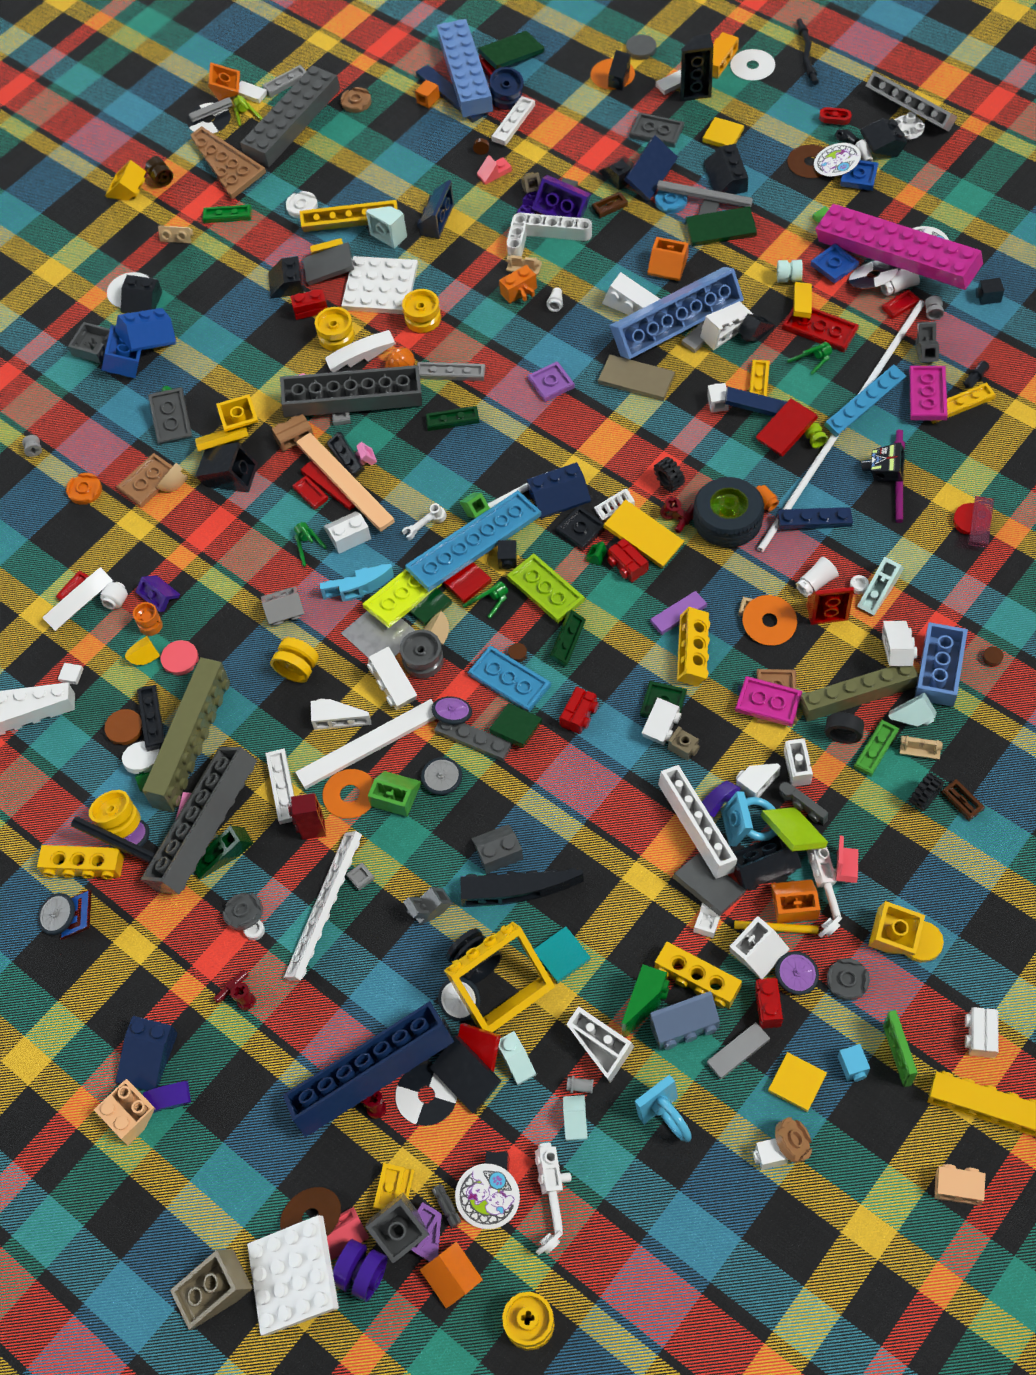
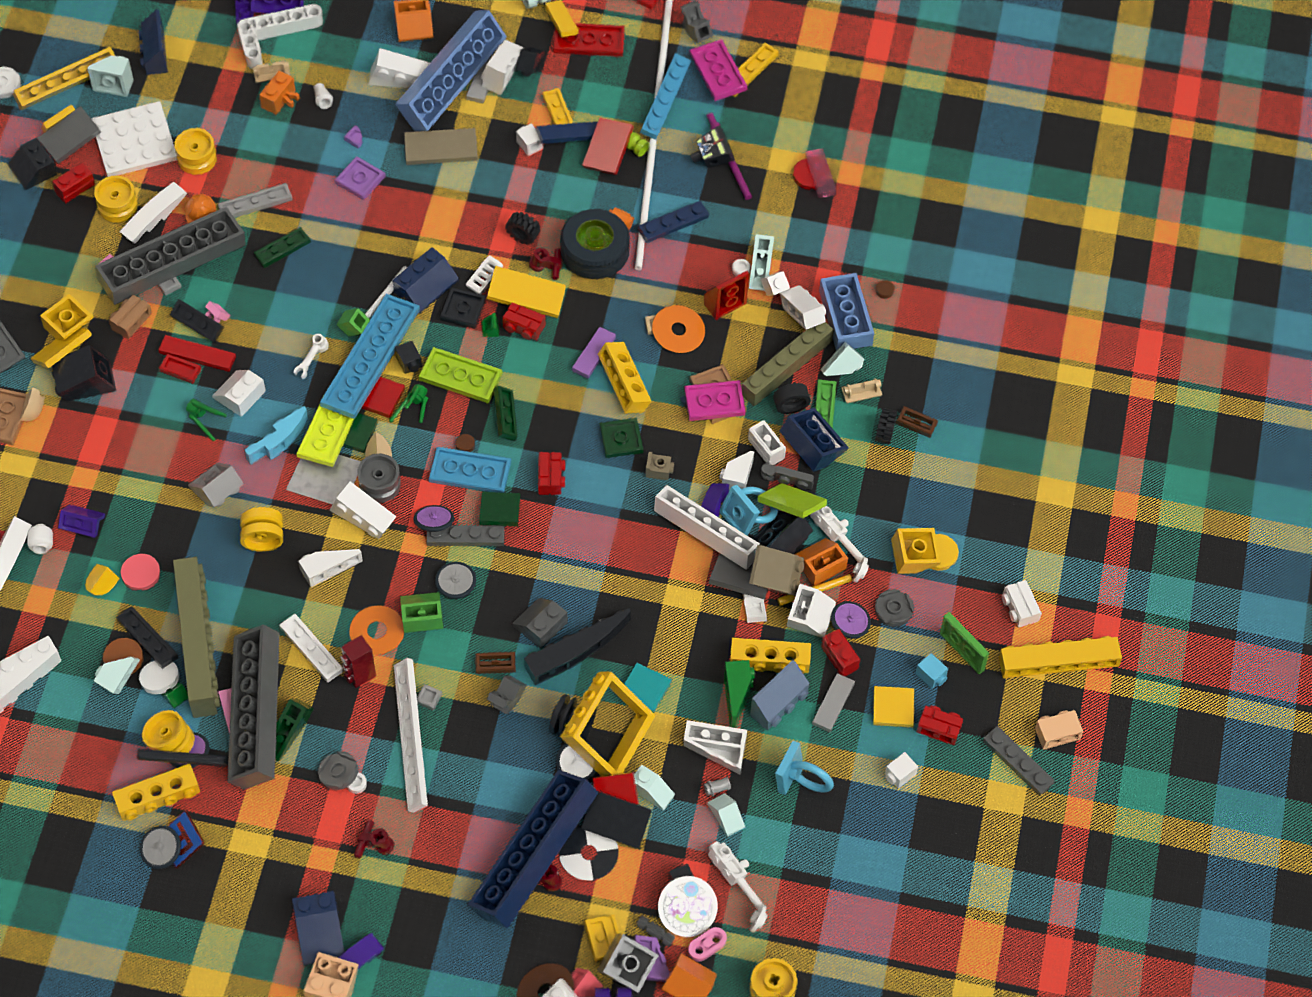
camera: 35 degrees left, 0 degrees up
(70, 673) = (38, 629): white tile -> none
(104, 740) = (115, 674): none -> light aqua slope
(147, 619) = (89, 547): orange wheel -> none
(345, 482) = (212, 345): light nougat tile -> none
(366, 745) = (369, 580): white tile -> none
(455, 869) = (495, 666): none -> reddish brown tile
(488, 1244) = (706, 944): none -> bright pink plate
(565, 344) = (354, 137): none -> medium lavender tile
(661, 721) = (630, 454): white brick -> none
(739, 892) = (776, 570): none -> dark tan slope
(793, 1140) = (914, 751): medium nougat tile -> none
(817, 577) = (703, 273): white plant -> none
(821, 352) = (602, 63): green plant -> none
(835, 1123) = (940, 724): none -> red brick
(846, 863) = (848, 511): coral panel -> none
(847, 776) = (813, 438): none -> dark blue slope
(883, 610) = (775, 283): none -> white brick
(901, 1199) = (1018, 761): none -> dark grey plate
(976, 374) = (752, 38): black axle -> none

